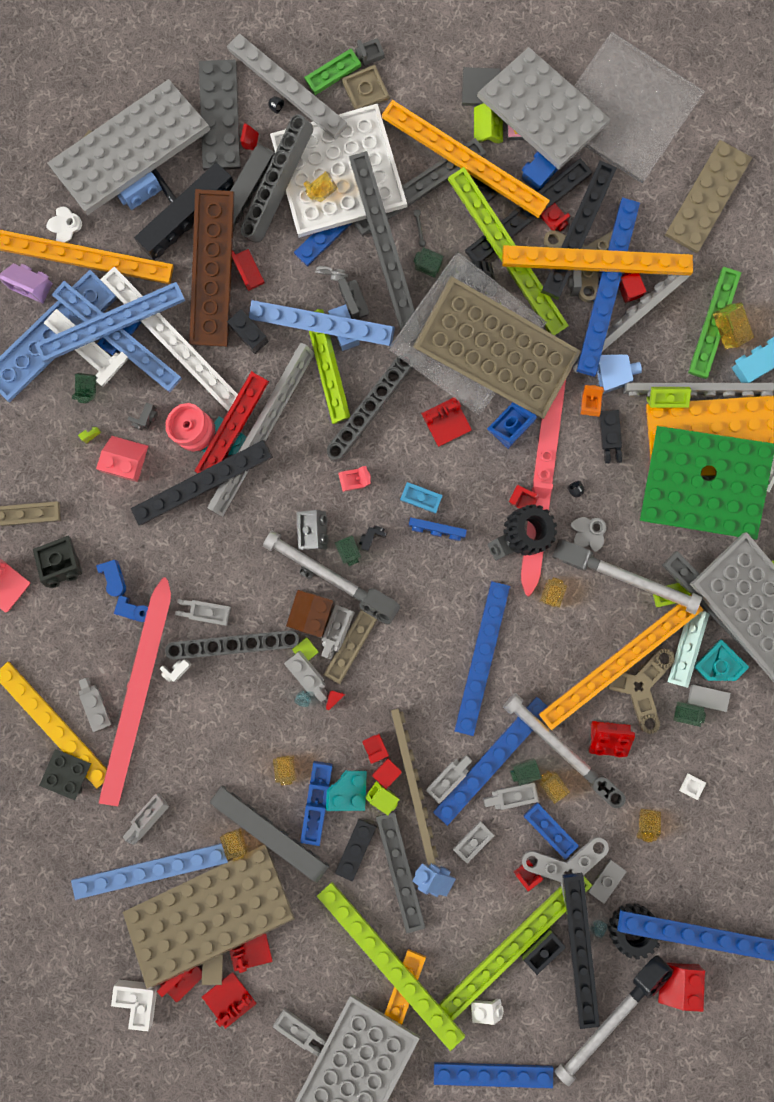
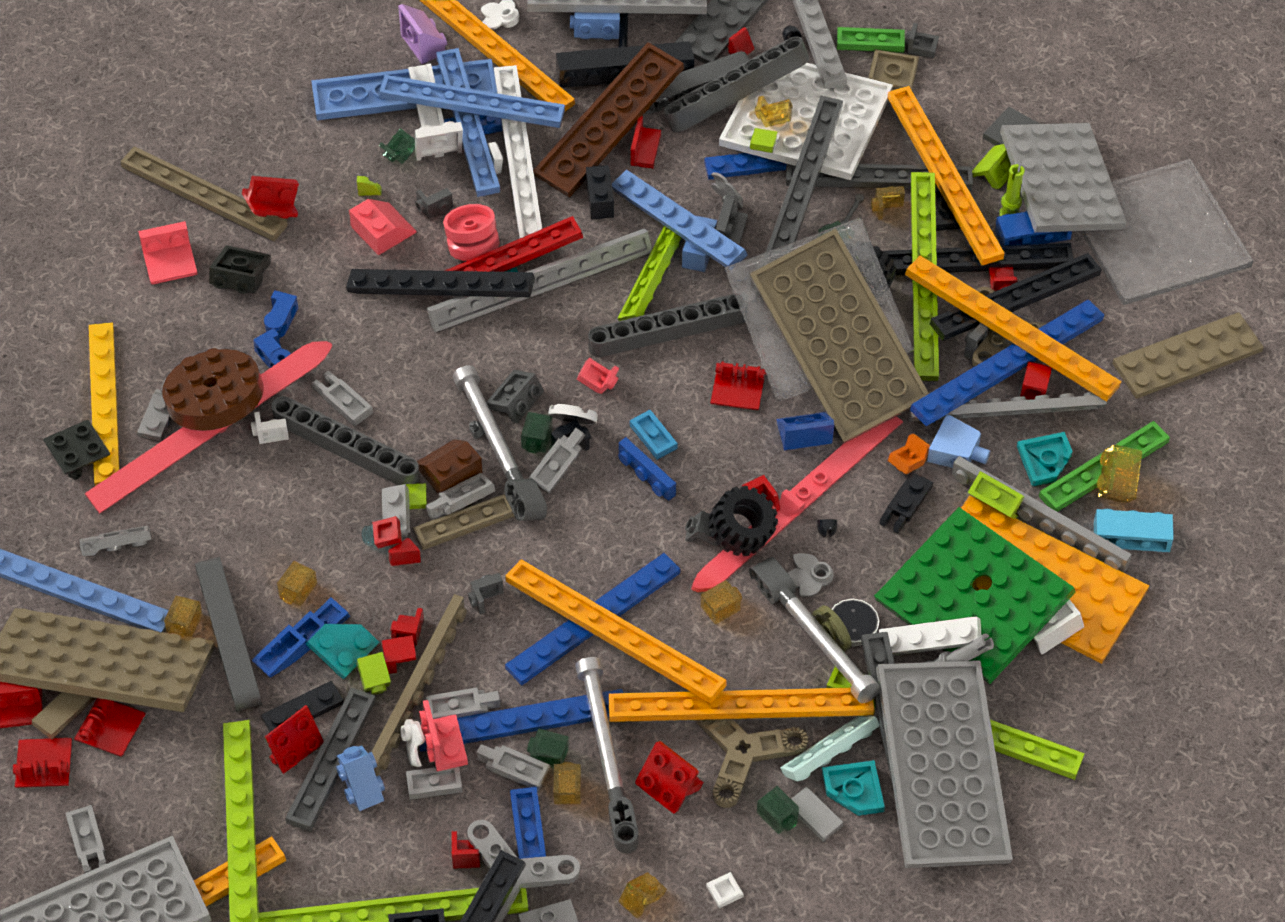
camera: 35 degrees right, 30 degrees down
(36, 495) = (272, 196): none -> red bracket
(104, 682) = (233, 393): none -> reddish brown piece
(158, 352) = (496, 156): none -> white tile
(315, 697) = (387, 532): none -> plate
(330, 216) = (763, 140): none -> lime tile
(364, 524) = (570, 413): none -> white tile
(372, 887) = (294, 740): none -> red hinge
(379, 564) = (558, 461): none -> light grey hinge
(403, 684) = (485, 588): none -> dark grey bracket
(438, 200) = (887, 198): none -> clear yellow bracket
(441, 826) = (413, 735): none -> white plate
(464, 817) = (442, 740): none -> coral bracket
(510, 666) = (616, 631): none -> light orange plate
(523, 150) = (1011, 200): none -> lime pin
(637, 568) = (834, 626): none -> olive tile
(639, 547) = (858, 618): none -> black tile
(674, 341) = (1045, 457): none -> teal plate
(702, 531) = (933, 635): none -> white plate
(722, 541) = (967, 651): none -> light grey pin

